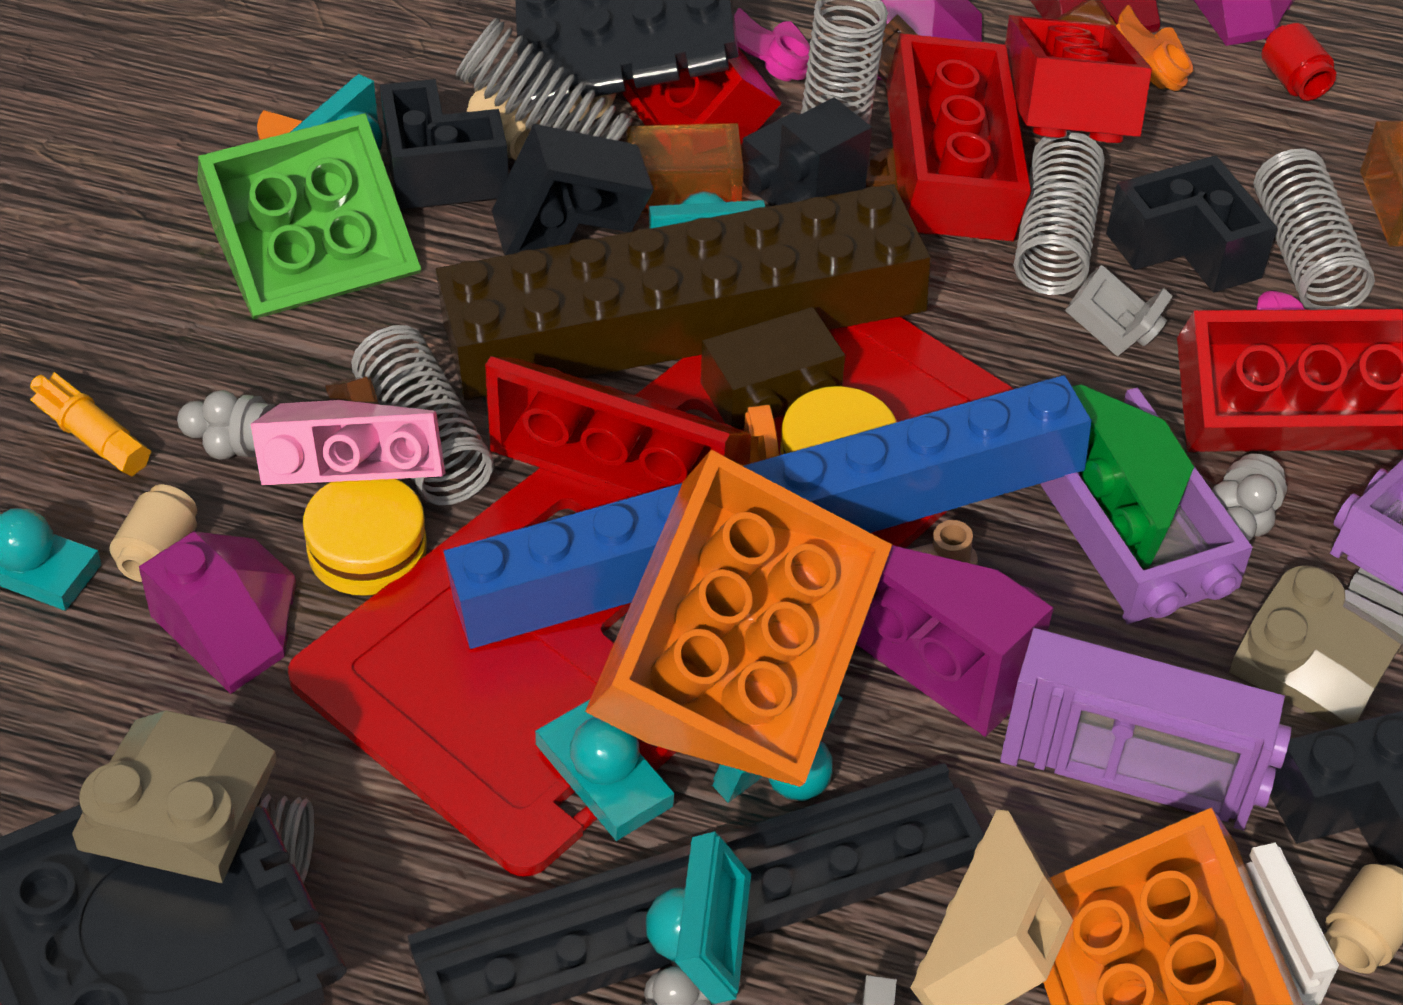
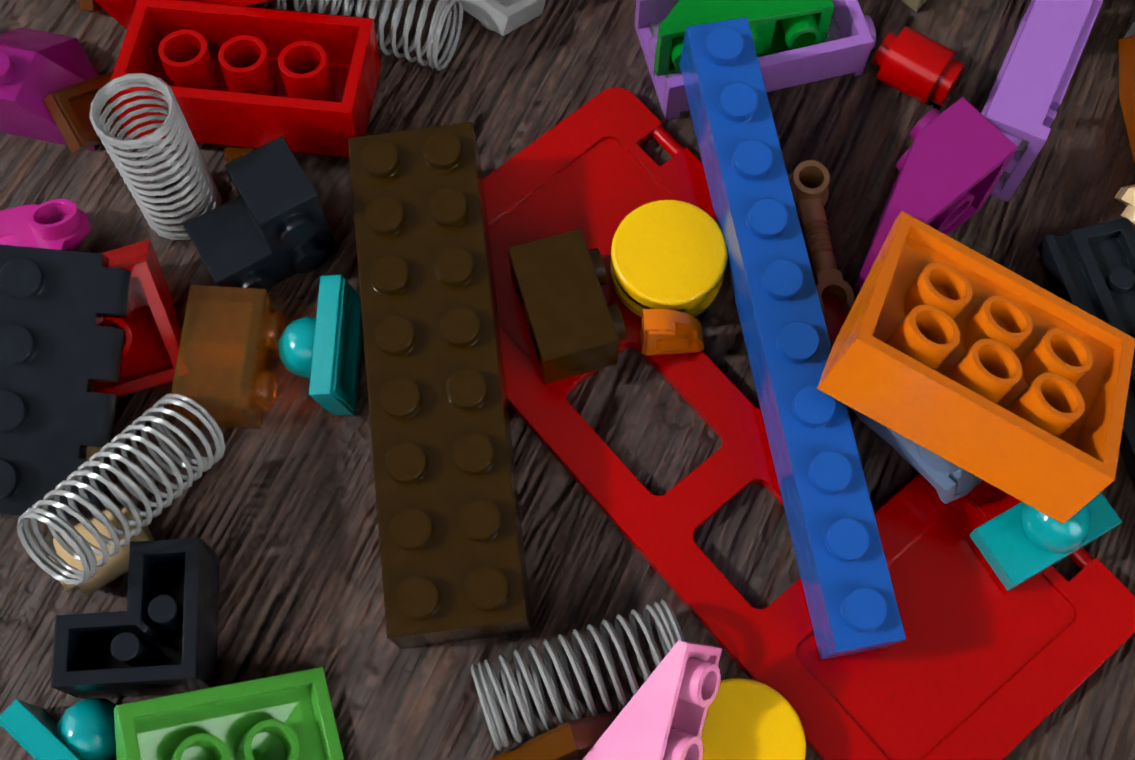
camera: 80 degrees left, 20 degrees up
(567, 182) = (274, 479): black brick -> none
(598, 431) = (651, 463): red slope -> none
(1143, 631) = (918, 66): none -> red brick

